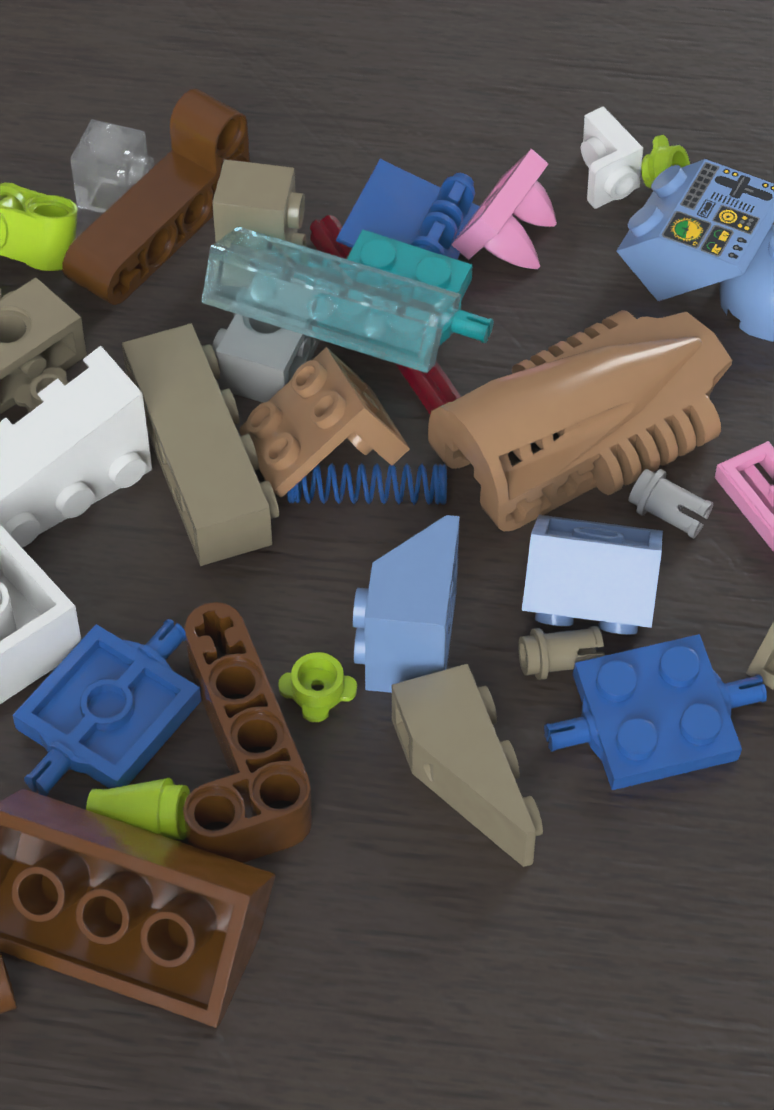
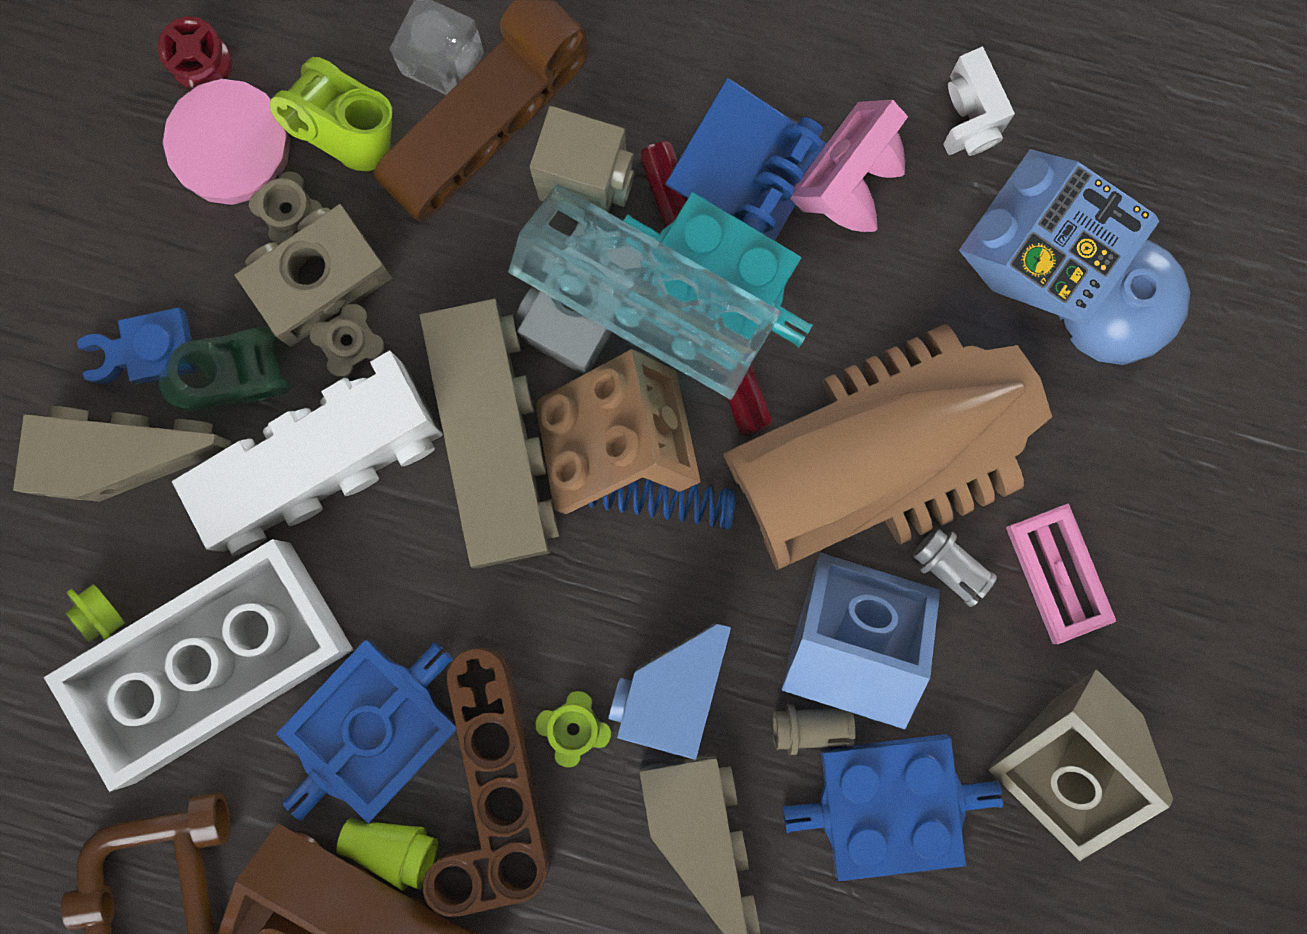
camera: 10 degrees right, 30 degrees up
(661, 158) = (1034, 126): lime plate -> none

